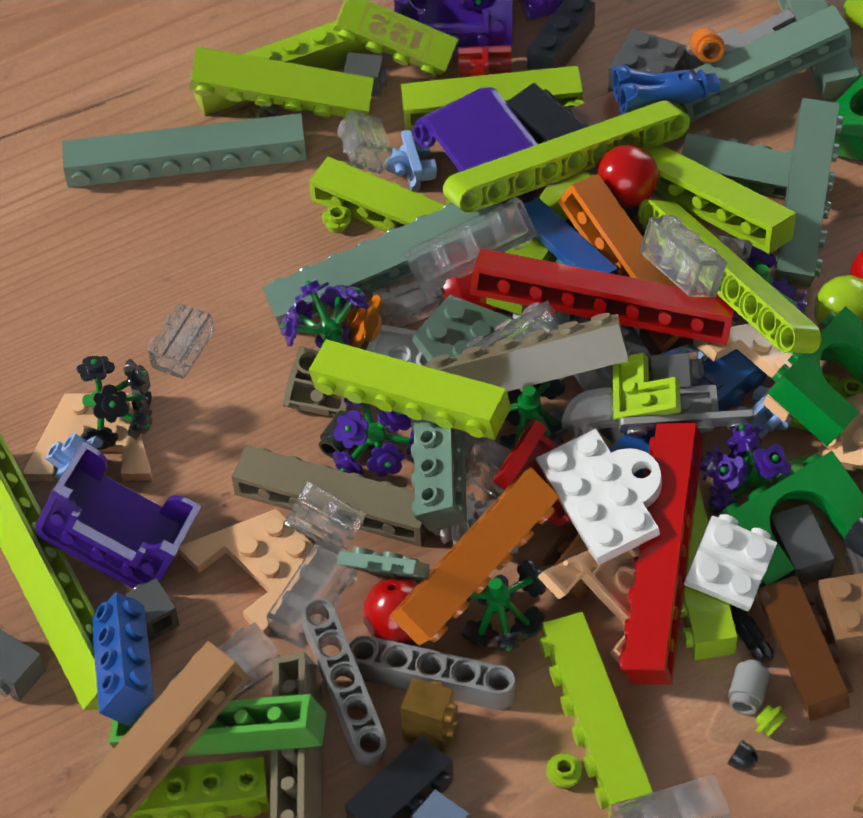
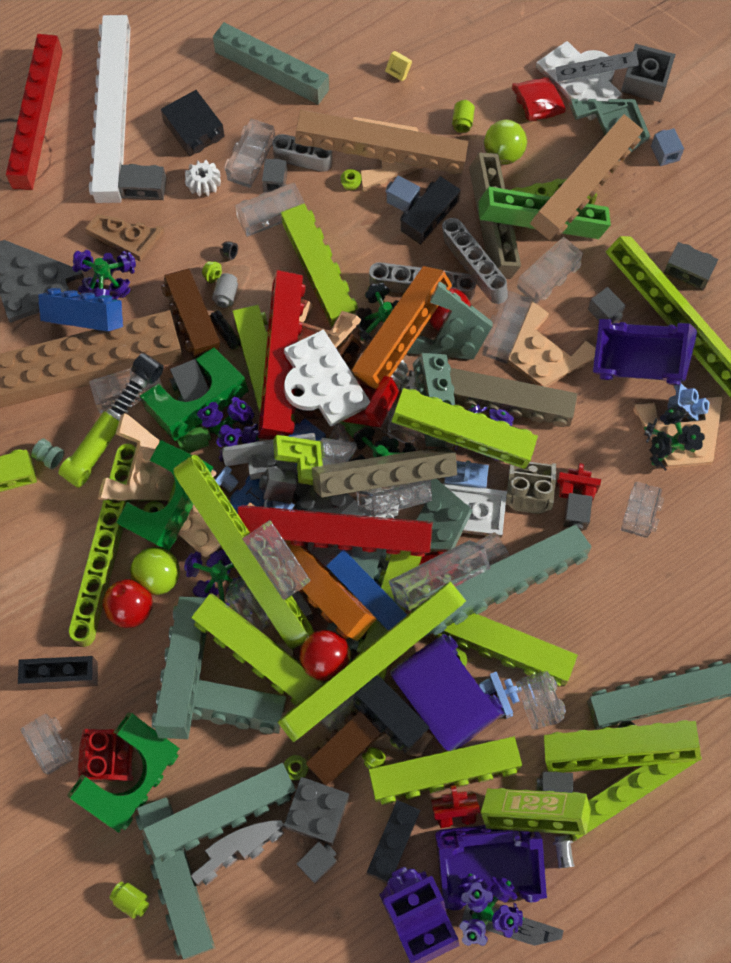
camera: 170 degrees right, 15 degrees up
(122, 659) = (613, 246): blue brick -> none
(258, 380) = (578, 480): none -> red hips
(266, 345) = (577, 511): none -> dark grey brick
(325, 517) = (508, 366): clear brick -> none
(329, 327) = (524, 515): dark purple plant -> none
(337, 218) = (550, 630): lime plate -> none
(365, 322) = (509, 532): orange plate -> none
(429, 711) = (418, 244): pearl gold brick -> none
(561, 779) = (334, 239): lime plate -> none
(639, 89) = (286, 765): blue piece -> none
(652, 21) = (318, 862): none -> dark grey brick
(712, 51) = (265, 814): orange brick -> none
(730, 561) = (237, 348): white plate -> none

